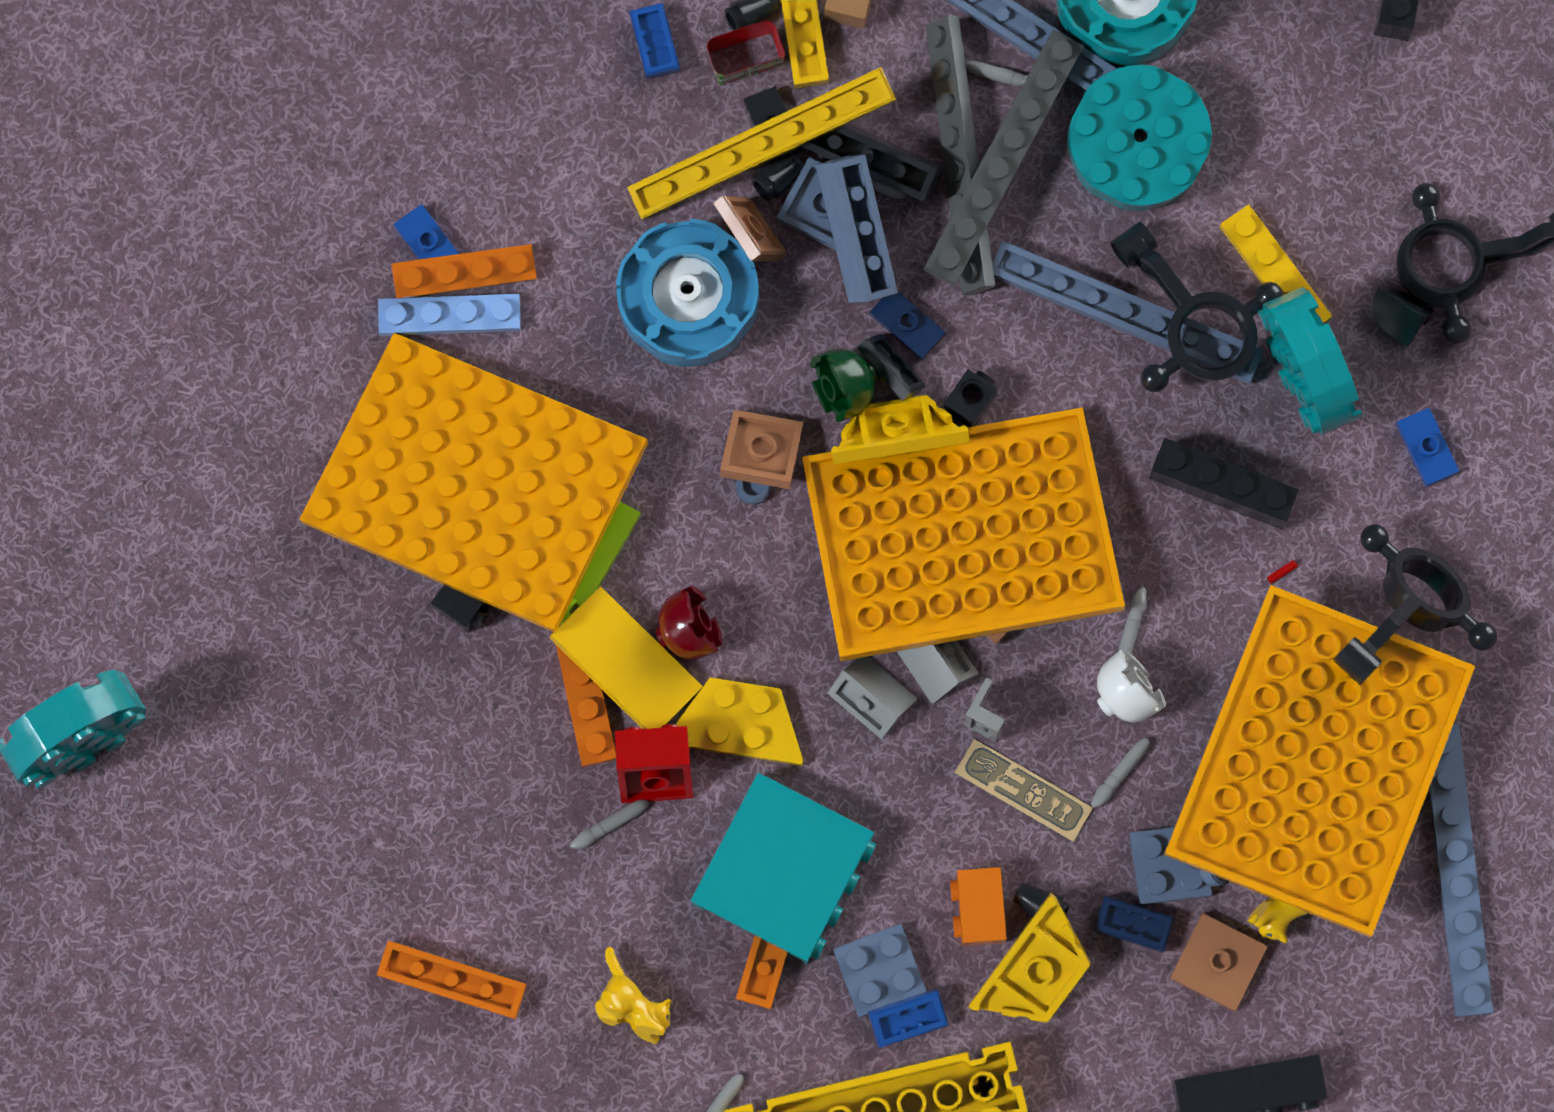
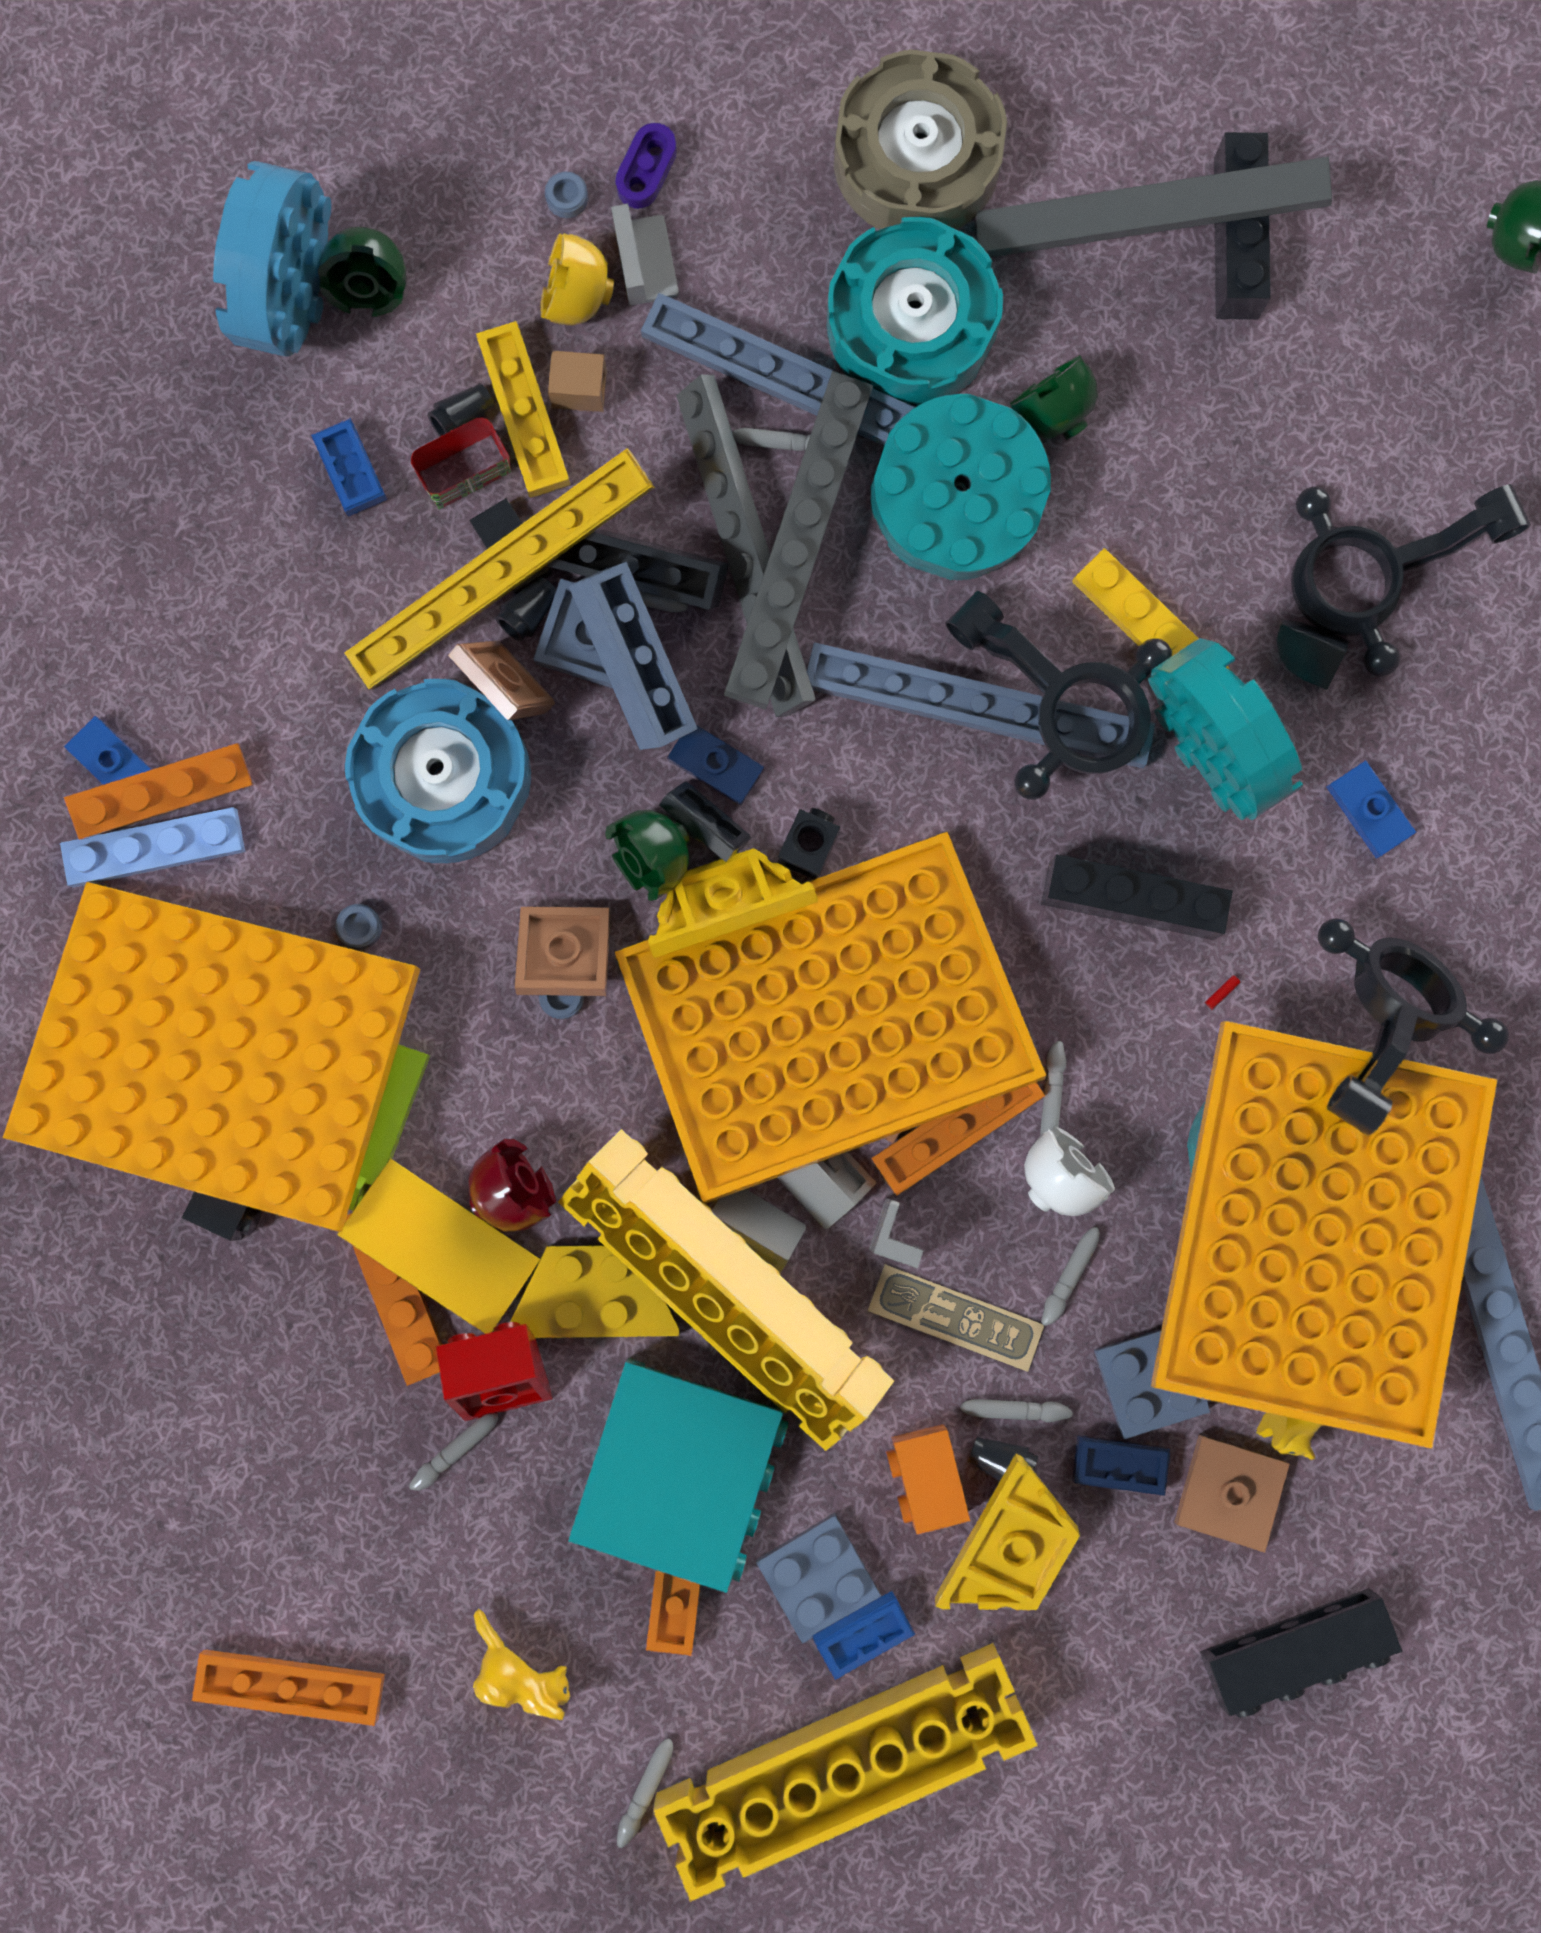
camera: 15 degrees left, 5 degrees up
(602, 403) = (358, 926): none -> sand blue tile
(844, 729) = (726, 1291): none -> yellow brick
(1044, 644) = (946, 1137): none -> orange plate
(1059, 869) = (1016, 1410): none -> light grey piece
(1230, 82) = (1059, 401): none -> dark green cylinder

